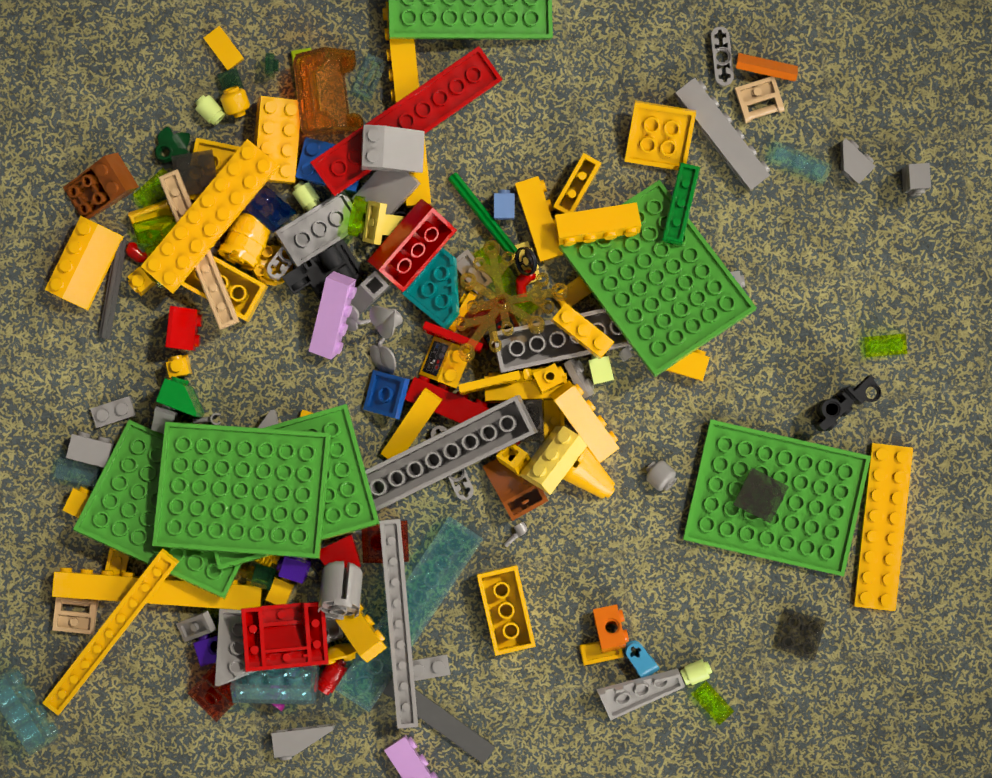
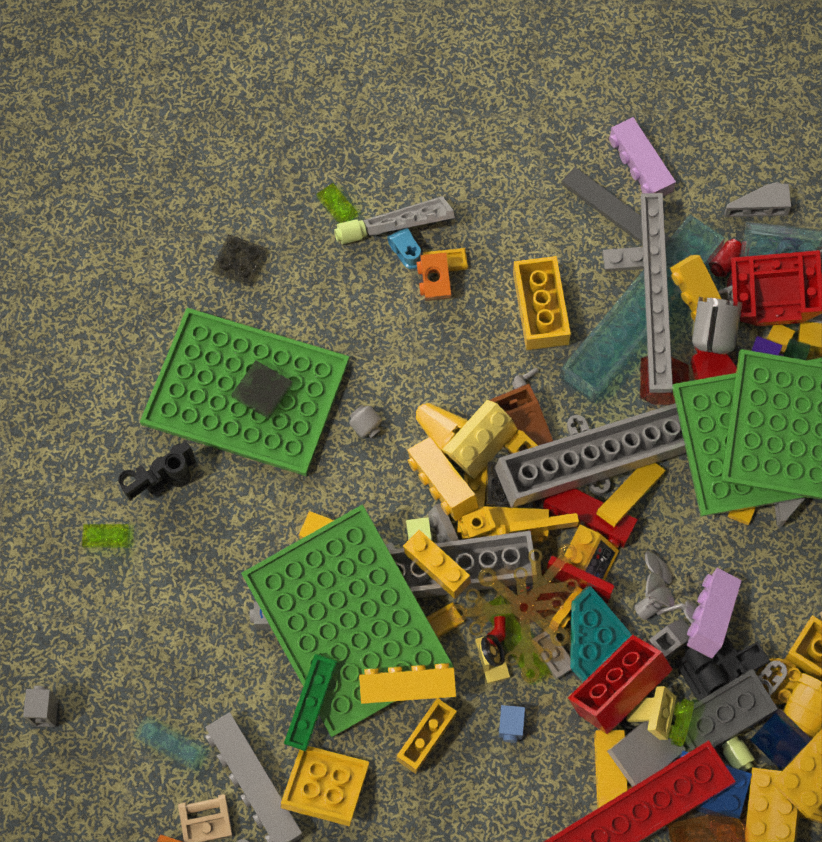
camera: 175 degrees left, 20 degrees down
(341, 651) = (720, 273): yellow dish -> none
(386, 394) = (656, 527): blue plate -> none
(392, 149) = (639, 787): light grey slope -> none
(482, 213) = (536, 716): green axle -> none
(538, 218) = (473, 706): yellow brick -> none
(853, 163) = (108, 734): light grey slope -> none
(883, 527) = (137, 355): yellow plate -> none

